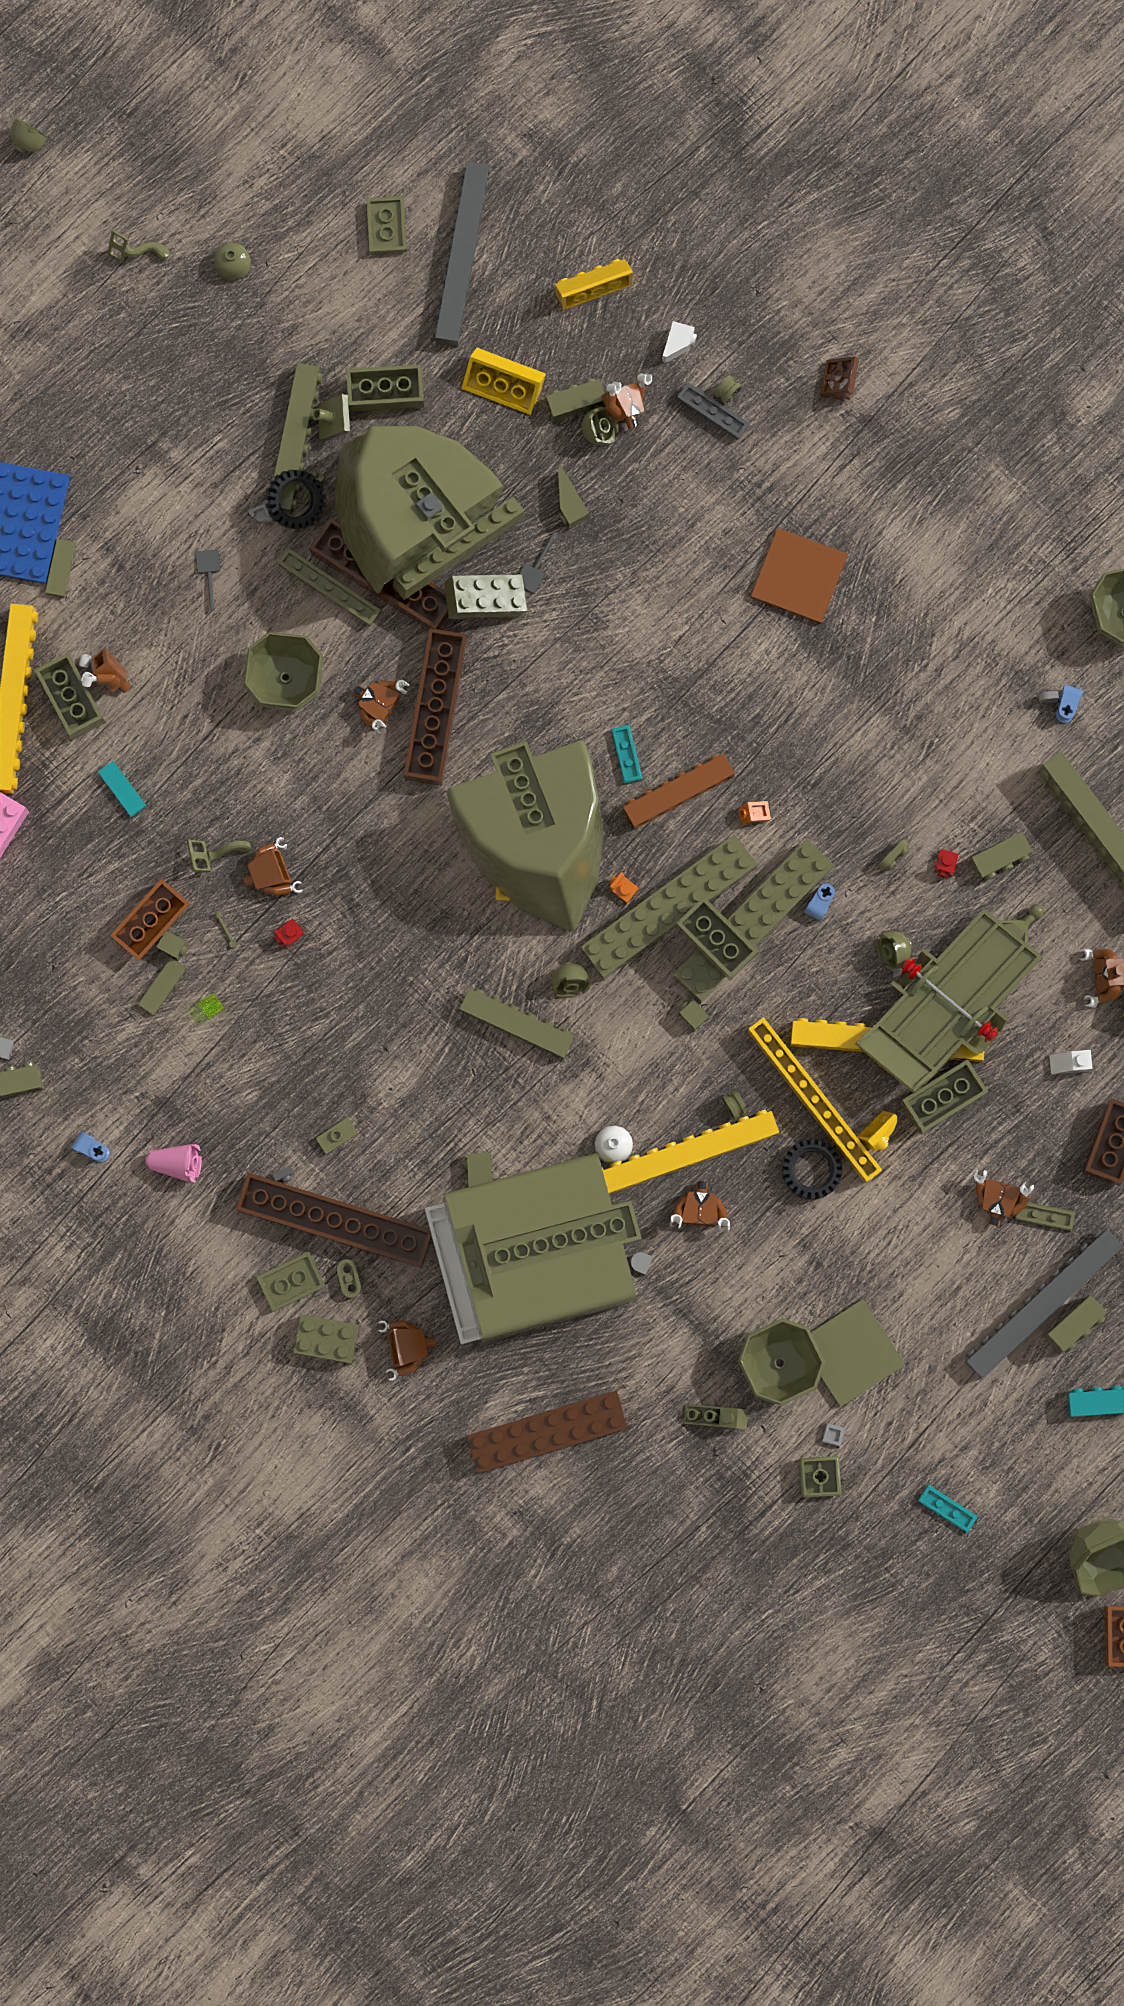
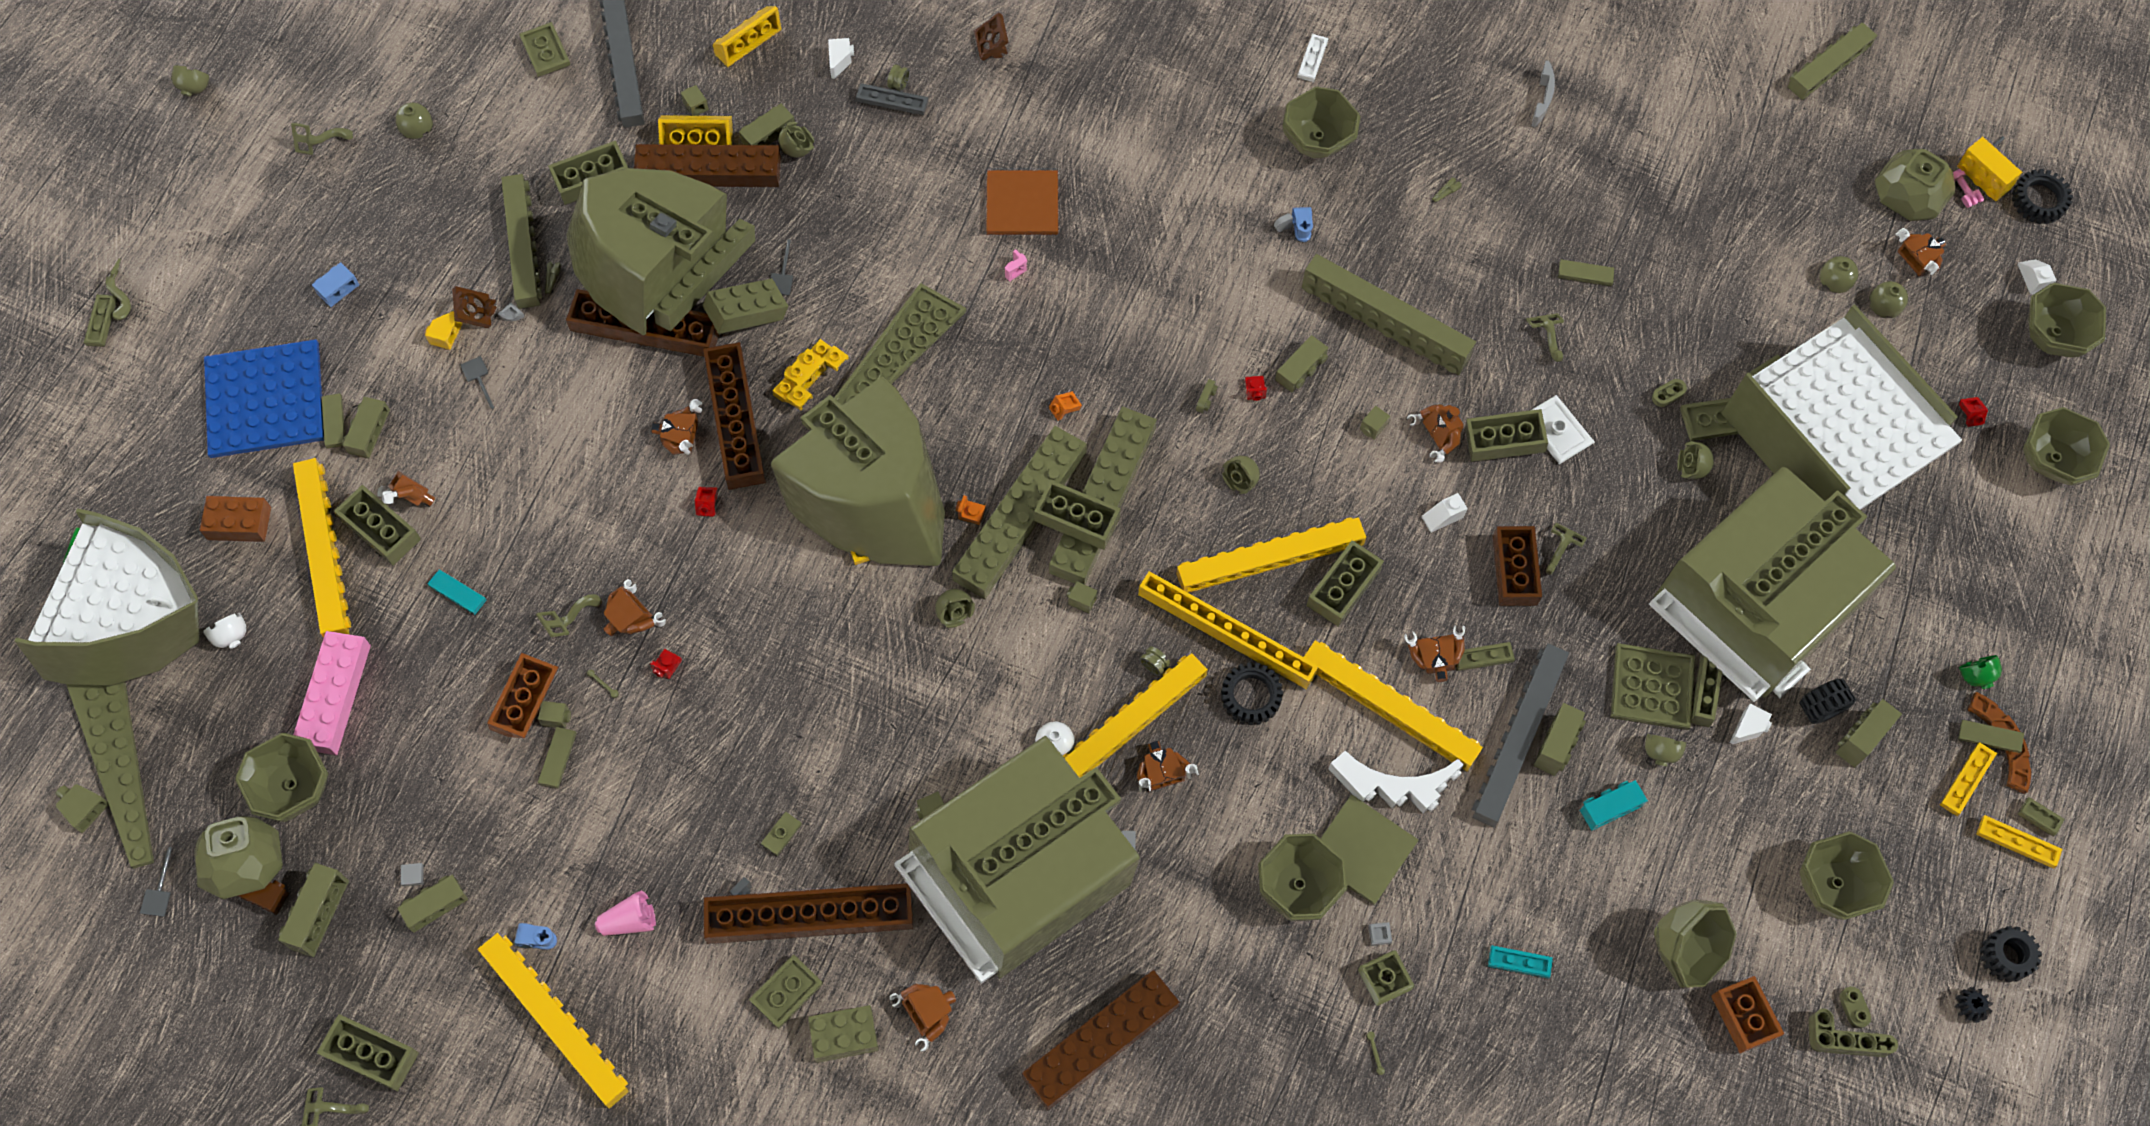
camera: 25 degrees left, 15 degrees down
(83, 1229) = (553, 1020): none -> yellow brick
(88, 587) = (366, 427): none -> olive brick
(103, 421) = (335, 284): none -> medium blue brick
(192, 510) = (443, 331): none -> yellow slope
(211, 1006) = (612, 757): clear neon green plate -> none
(214, 494) = (460, 303): none -> reddish brown piece
(274, 499) = (551, 271): black tyre -> none
(280, 656) = (575, 418): olive rock -> none
(329, 587) = (596, 351): olive plate -> none
(333, 417) = (550, 210): olive tile -> none
(348, 1279) = (843, 967): olive plate -> none
(379, 784) = (705, 501): none -> red bracket
(503, 421) = (715, 163): none -> reddish brown brick
(515, 341) = (694, 101): none -> olive brick
(517, 1024) = (917, 664): olive brick -> none
(519, 684) = (806, 371): none -> yellow bracket
(571, 506) = (797, 214): olive slope -> none
(626, 401) = (812, 111): dark orange torso -> none
(626, 754) = (927, 398): teal tile -> none
(632, 682) = (905, 339): none -> olive wing
(679, 791) = (987, 411): dark orange brick -> none
(716, 1416) = (1260, 959): olive slope -> none
(762, 648) = (1016, 267): none -> bright pink bracket
(785, 1520) = (1370, 1036): none -> olive hinge
(819, 905) = (1157, 459): medium blue piece -> none
(877, 1133) = (1299, 634): yellow slope -> none
(927, 1320) = (1421, 790): none -> white arch
(936, 1231) = (1393, 706): none -> yellow brick
(952, 999) = (1311, 493): olive piece -> none
(1046, 943) = (1374, 422): none -> olive brick

